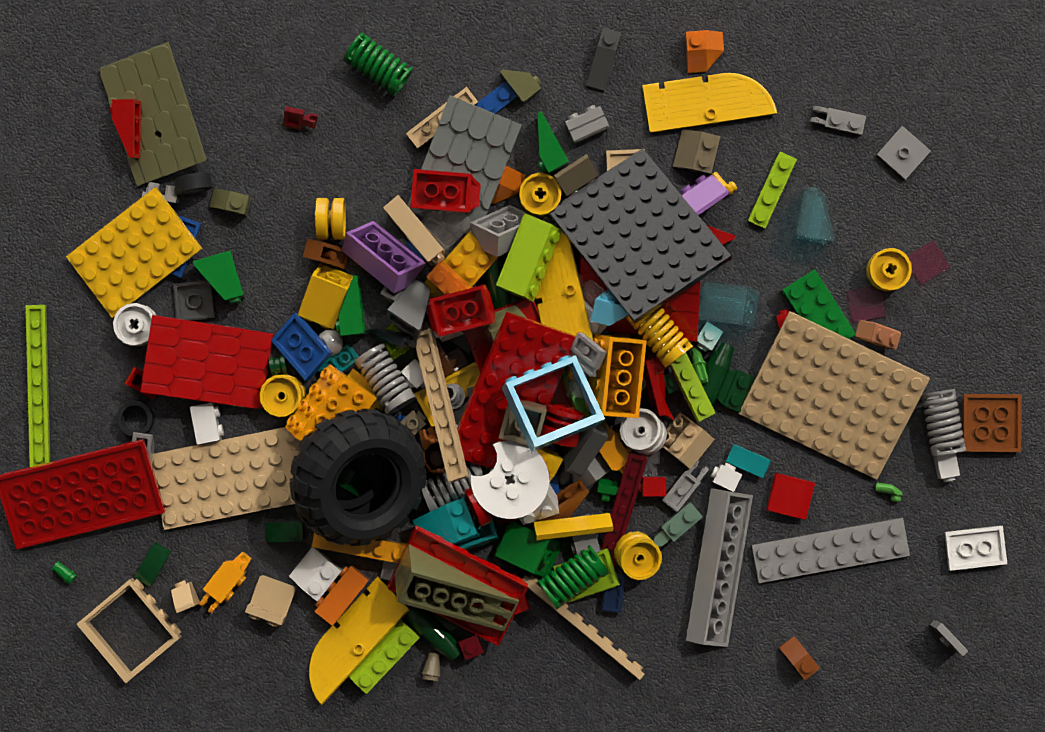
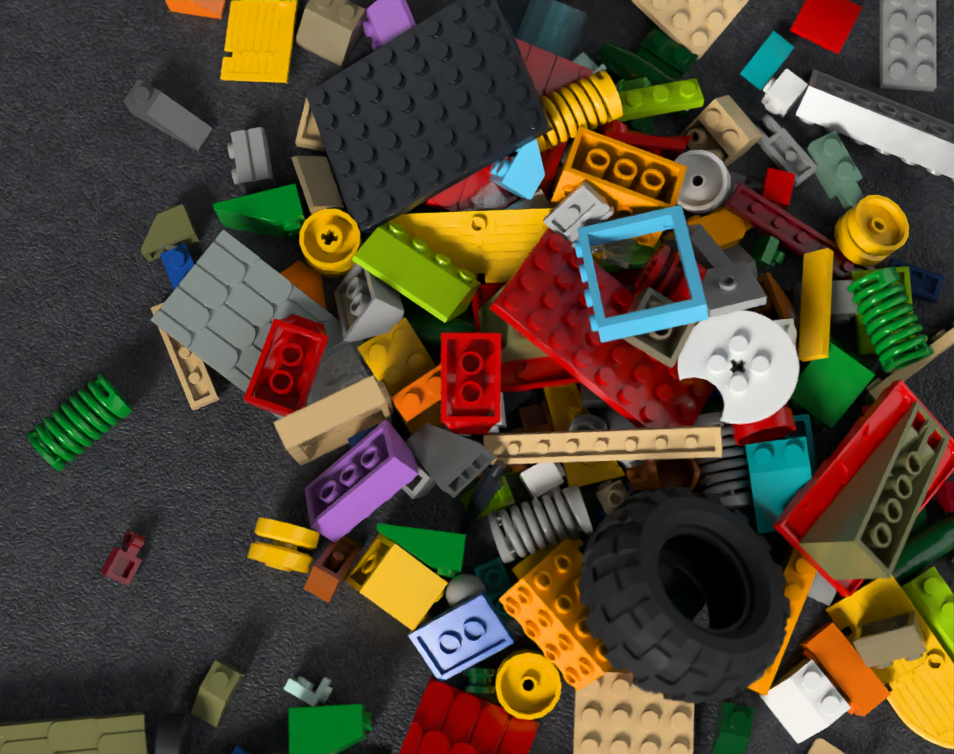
camera: 80 degrees left, 10 degrees down
(245, 255) = (303, 690): none -> light aqua bracket
(364, 616) = (890, 640): none -> dark tan slope
(562, 464) = (731, 289): none -> light grey plate

